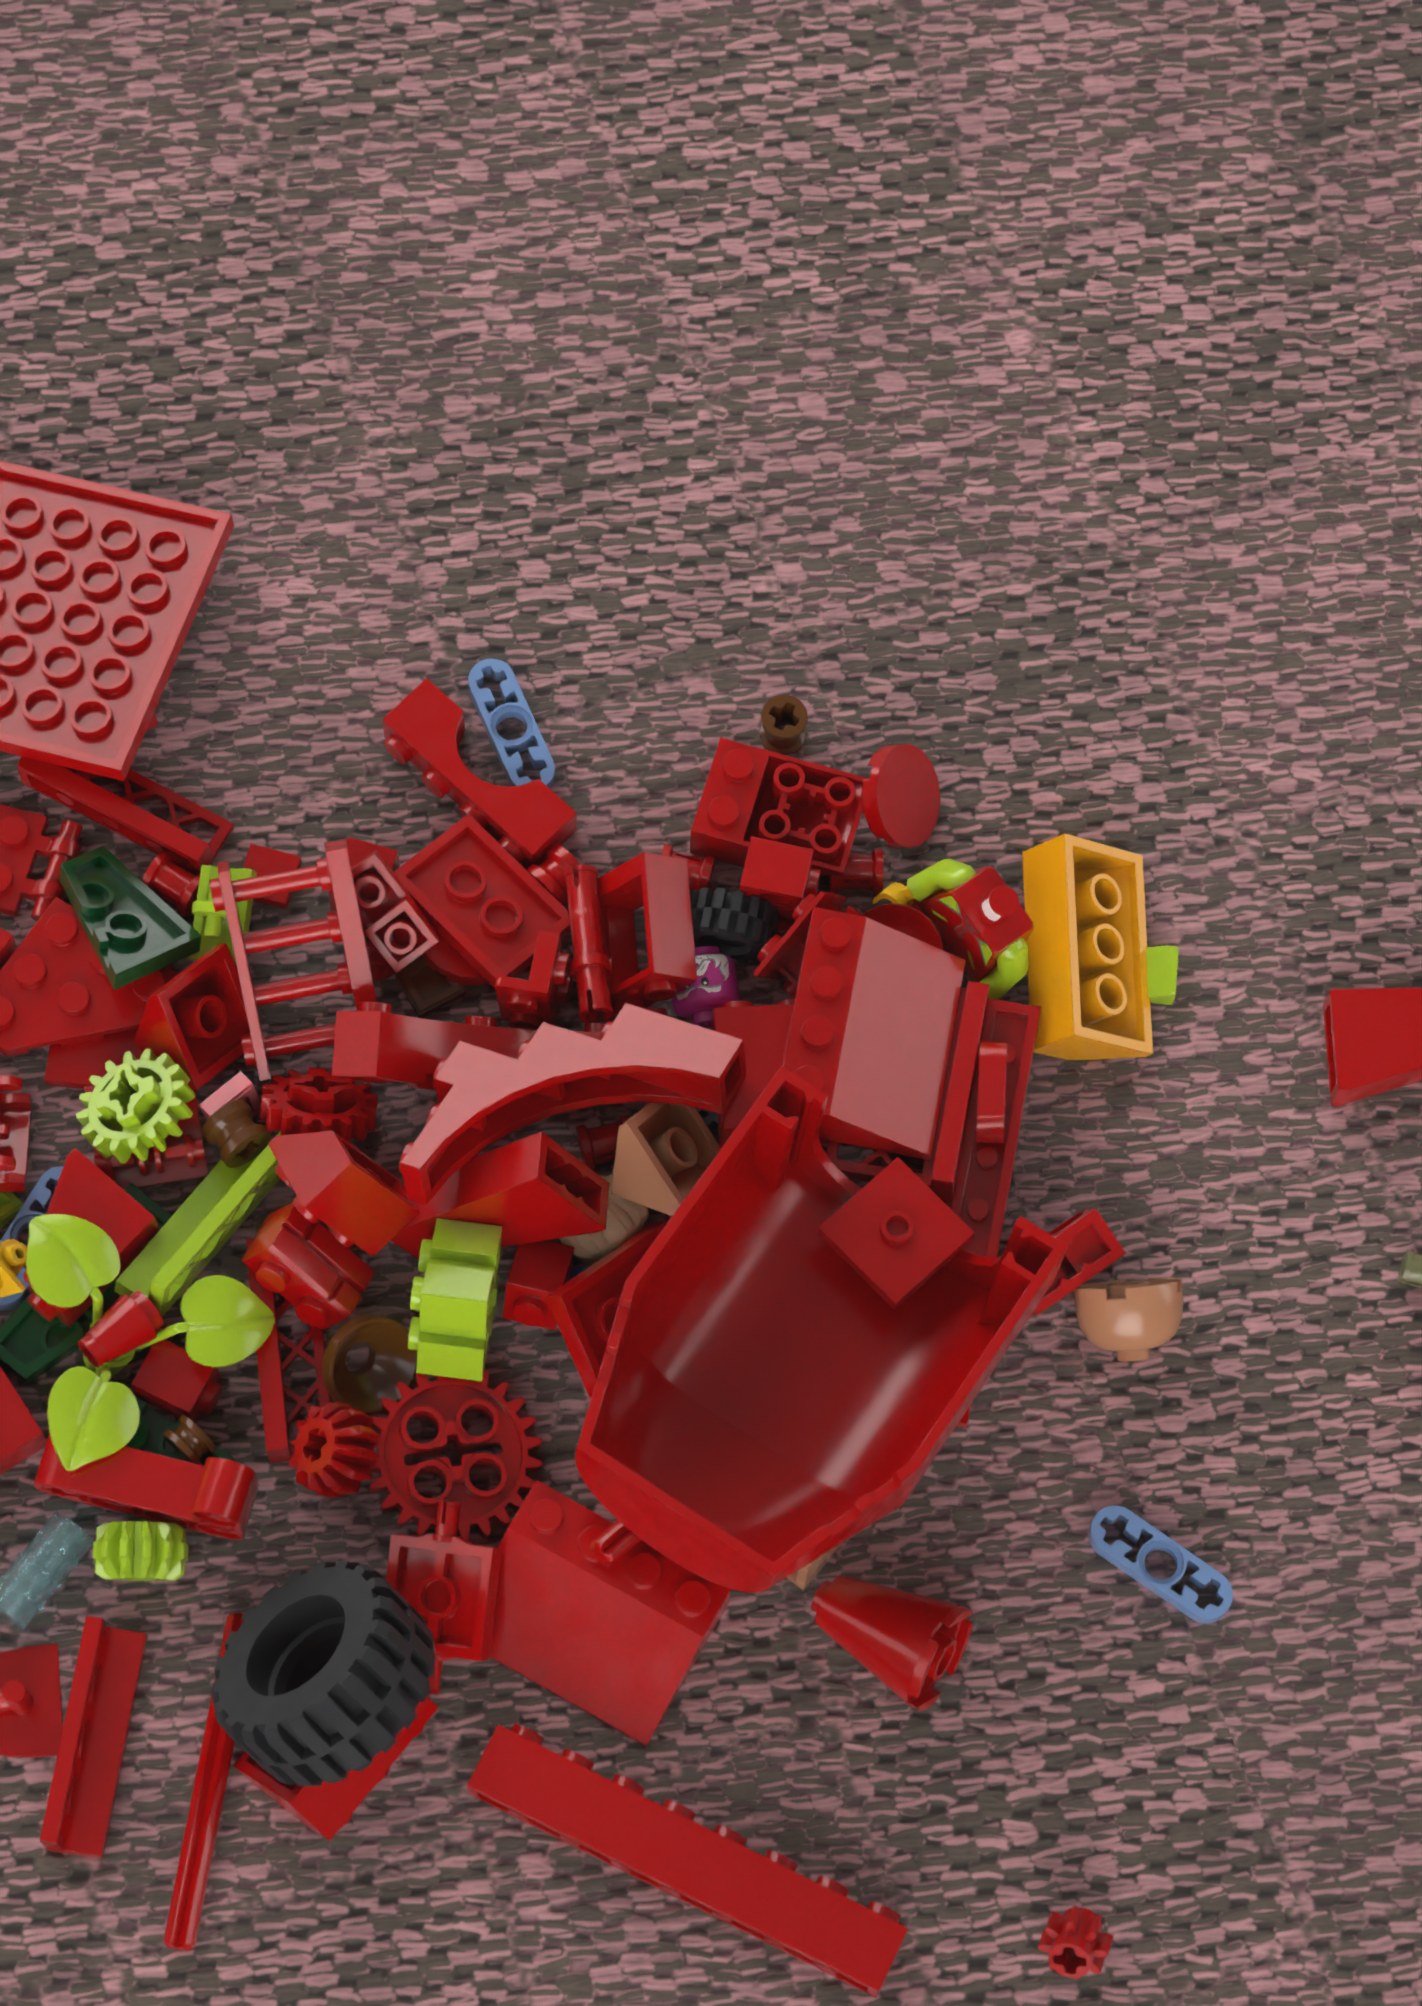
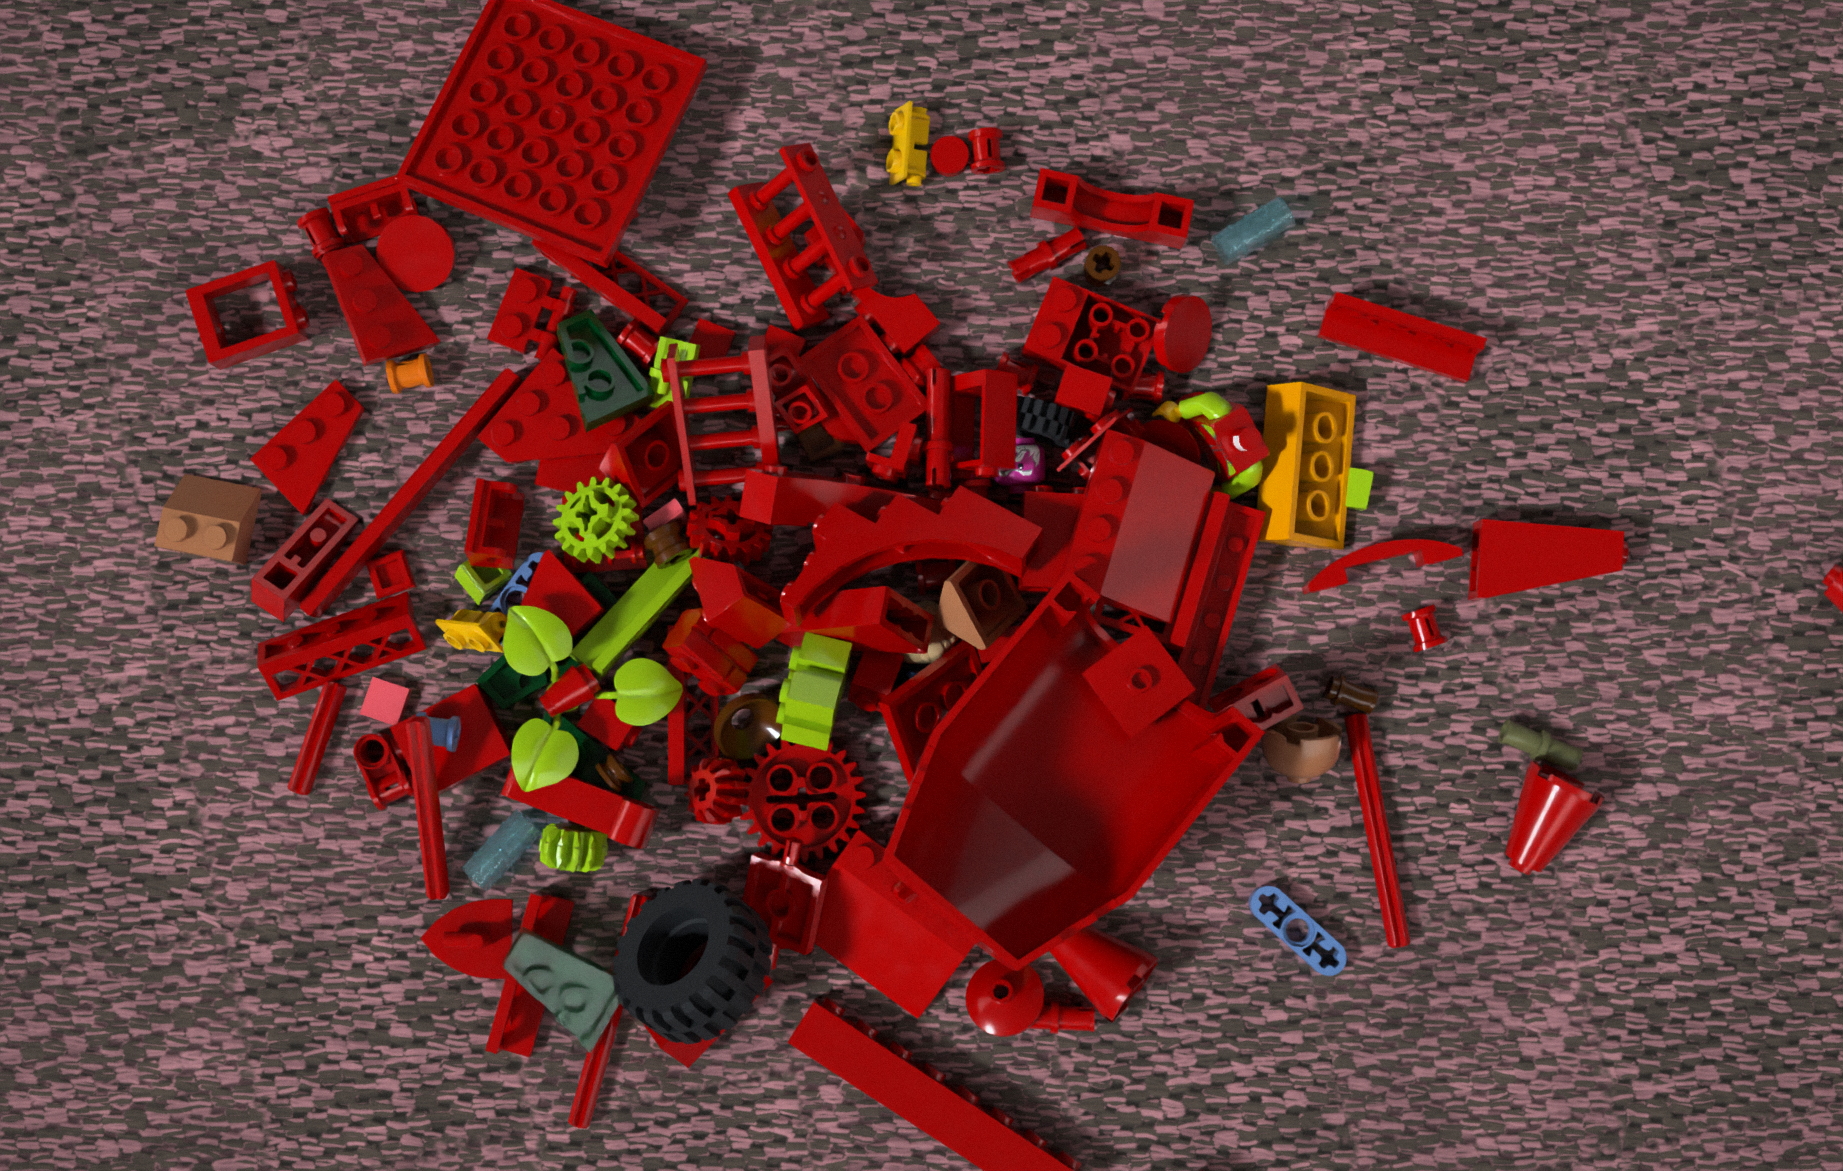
camera: 10 degrees right, 15 degrees up
(148, 1735) = (566, 983): none -> clear green wing
(339, 729) = (776, 249): none -> red fence
(504, 622) = (908, 128): none -> yellow hinge
(510, 690) = (901, 215): medium blue beam -> none
(565, 610) = (949, 156): none -> red tile
(613, 598) = (986, 150): none -> red bush
(709, 720) = (1047, 255): none -> red pin
(767, 1715) = (1010, 1014): none -> red dish
(838, 1719) = (1065, 1018): none -> red pin
(839, 659) = (1146, 218): none -> red arch
(978, 663) = (1253, 231): none -> clear light blue axle
(991, 1092) = (1221, 576): red beam -> none
(1189, 1241) = (1350, 694): none -> reddish brown pin
(1240, 786) = (1400, 337): none -> red fence
(1251, 1420) = (1377, 830): none -> red axle
(1264, 1042) = (1424, 551): none -> red slope
(1275, 1143) = (1424, 628): none -> red bush

